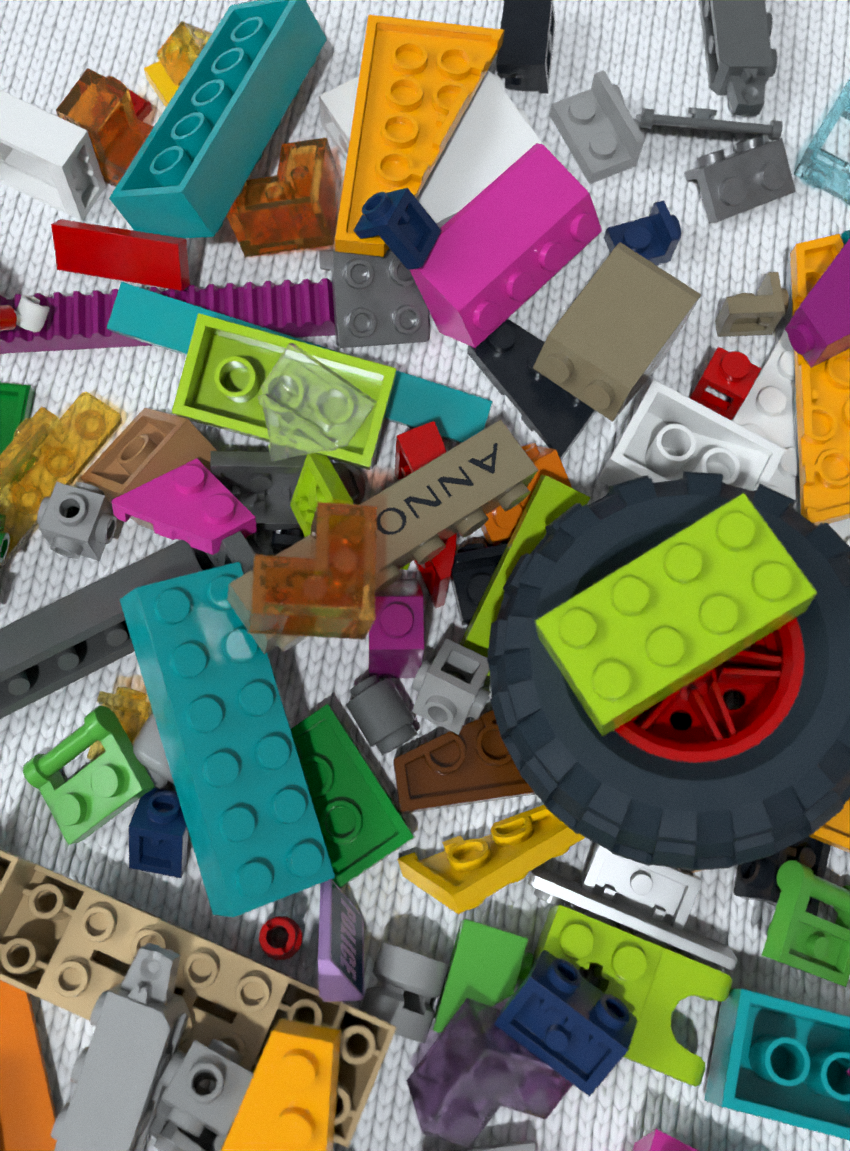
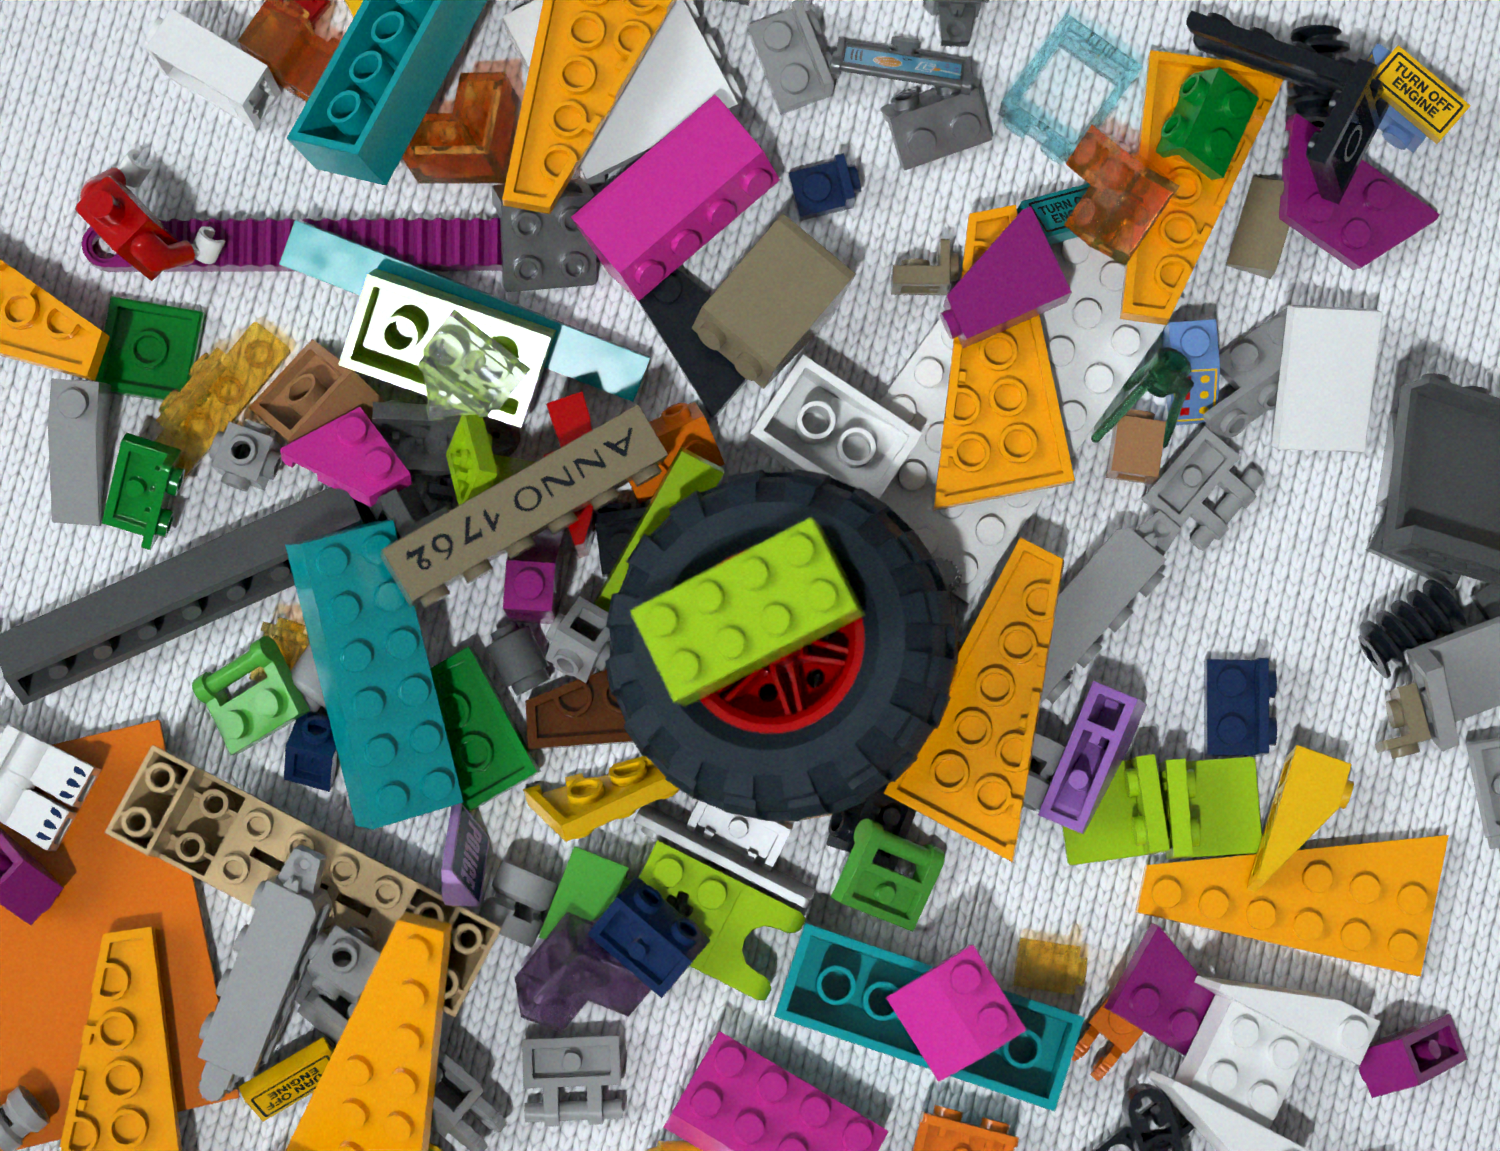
camera: 10 degrees right, 10 degrees up
(121, 254) = (295, 183): red tile -> none
(294, 940) = (425, 853): red pin -> none
(323, 593) = (468, 566): clear orange brick -> none
(400, 224) = (564, 191): dark blue bracket -> none
(729, 374) = (883, 352): red brick -> none

